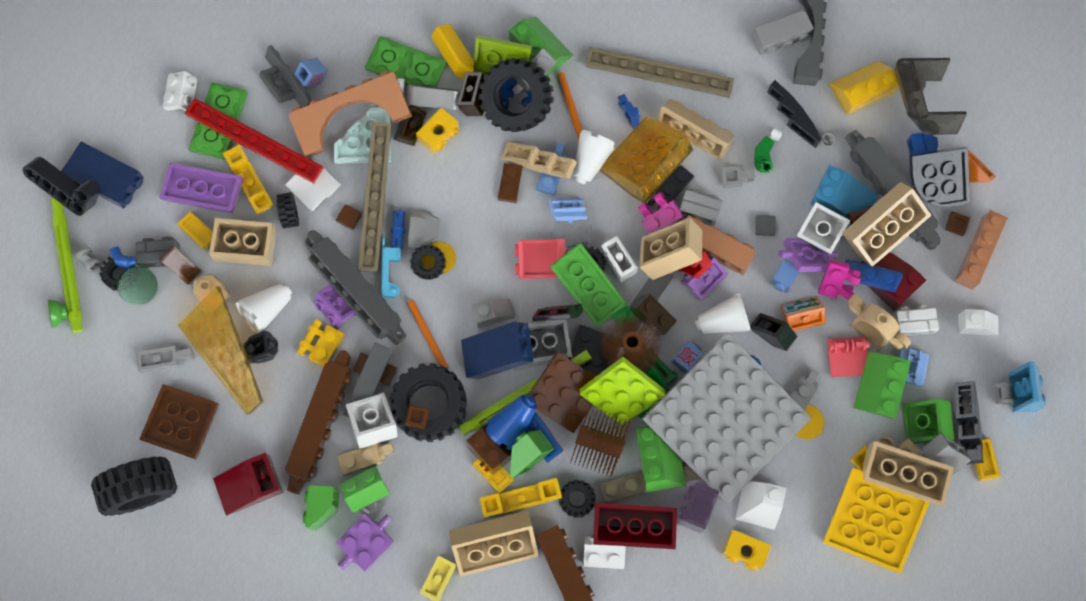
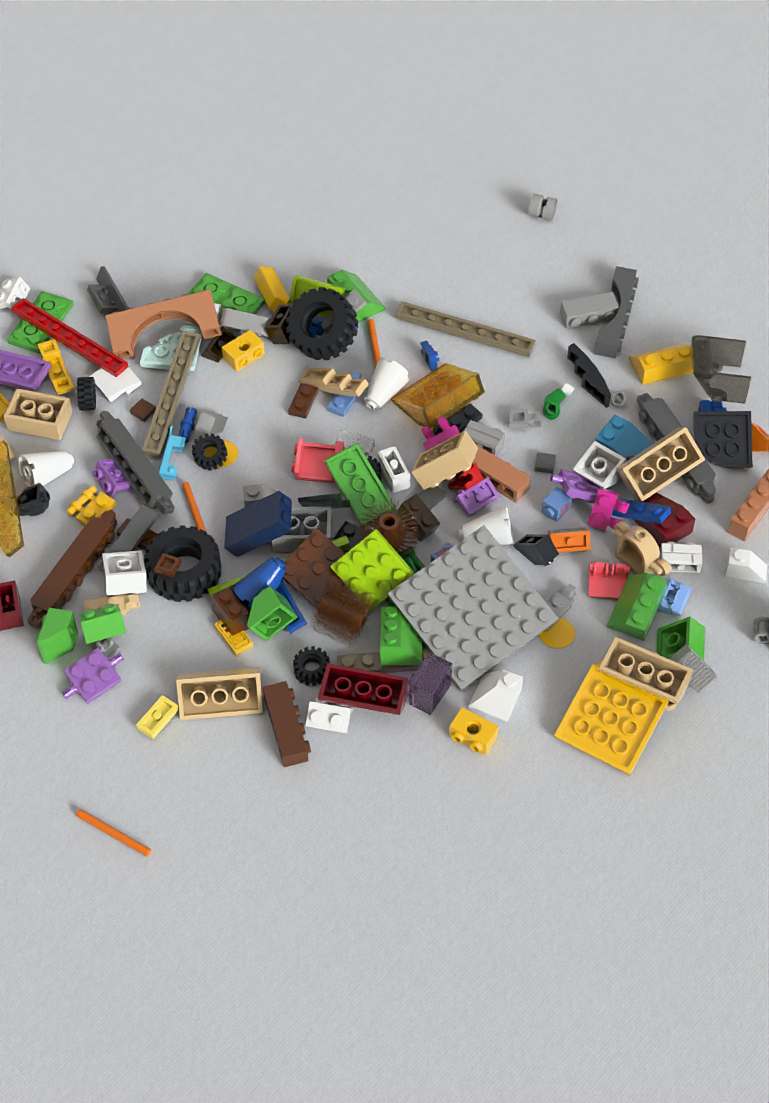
camera: 10 degrees right, 20 degrees down
(310, 72) = (135, 291): medium blue brick -> none
(520, 498) = (266, 658): yellow slope -> none
(567, 209) = (353, 424): light blue piece -> none
(700, 132) = (494, 378): tan slope -> none
(957, 223) = (737, 483): reddish brown tile -> none
(969, 420) = (722, 648): black slope -> none
(988, 469) = (734, 687): yellow tile -> none

